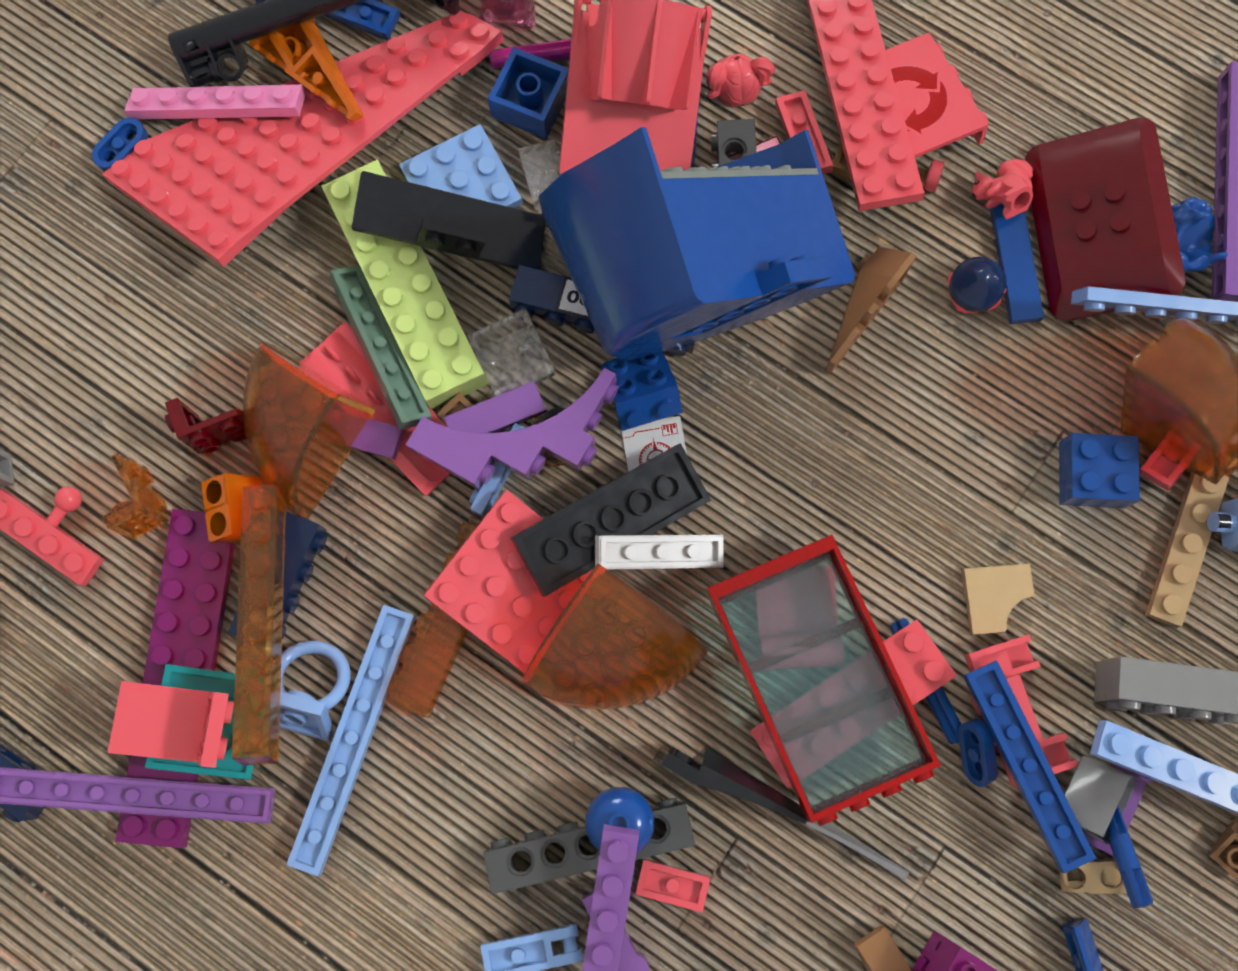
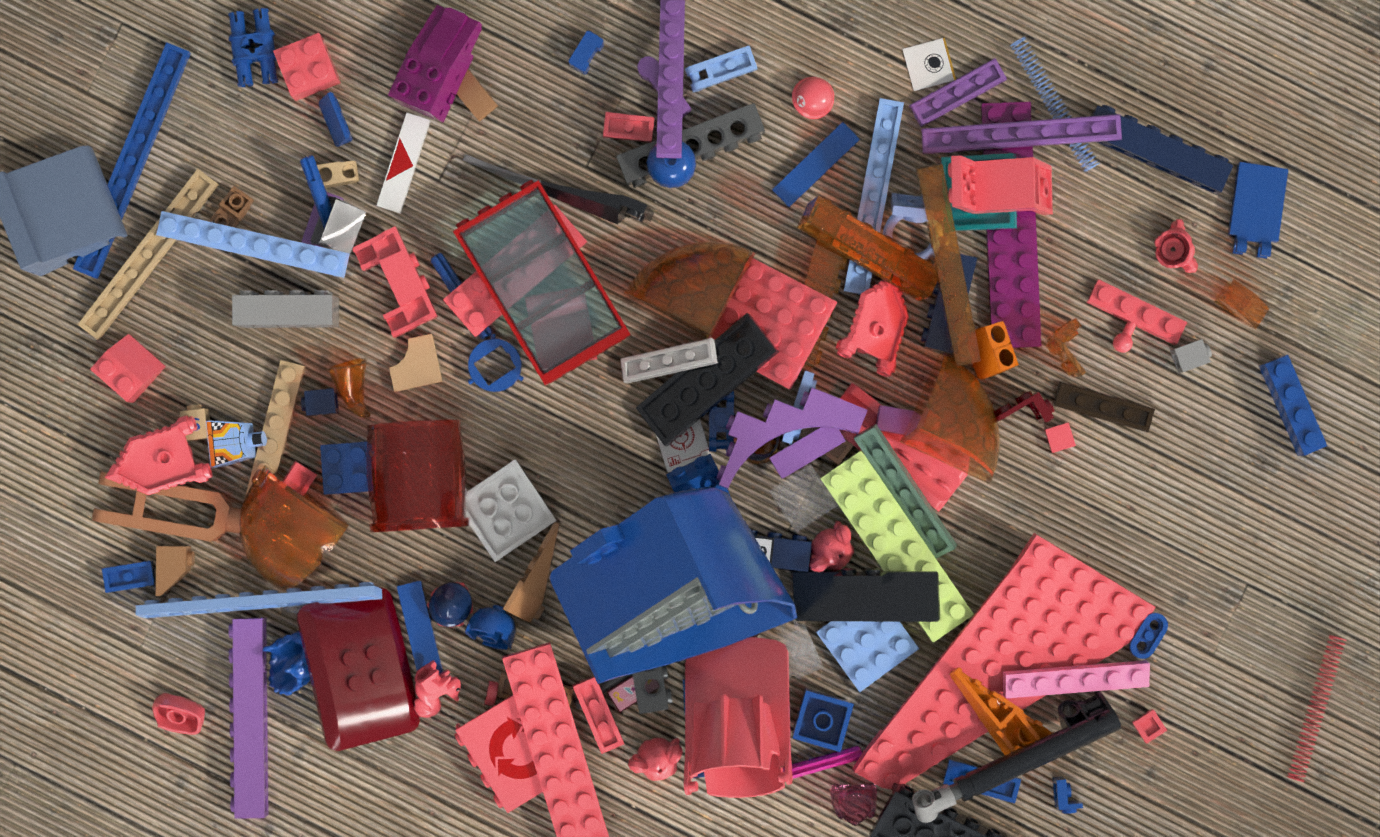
camera: 170 degrees right, 10 degrees up
(104, 933) = (1022, 39): none -> light blue piece
(112, 423) = (1103, 407): none -> dark brown tile
(142, 45) = (1149, 726): none -> coral plate
(175, 387) = (1059, 437): none -> coral tile
(211, 869) = (958, 92): none -> medium lavender tile
(244, 916) = (929, 64): none -> white sticker
(368, 664) = (869, 248): none -> clear orange brick
(376, 562) = (877, 327): none -> coral shield
(411, 891) = (813, 97): none -> coral helmet
(422, 795) = (815, 164): none -> blue tile
(486, 292) = (828, 546): none -> coral hair
(603, 467) = (717, 423): none -> blue plate
(881, 556) = (484, 349): none -> blue piece
(895, 392) = (506, 510): none -> white plate
(933, 250) = (493, 627): none -> blue cylinder
(978, 752) = (422, 248): blue plate -> none
(993, 880) = (403, 163): none -> white tile
(1017, 435) = (416, 475): none -> clear red piece
(1029, 767) = (390, 241): blue plate -> none
(1090, 584) = (349, 382): none -> clear orange hat
(1130, 561) = (320, 402): none -> dark blue brick

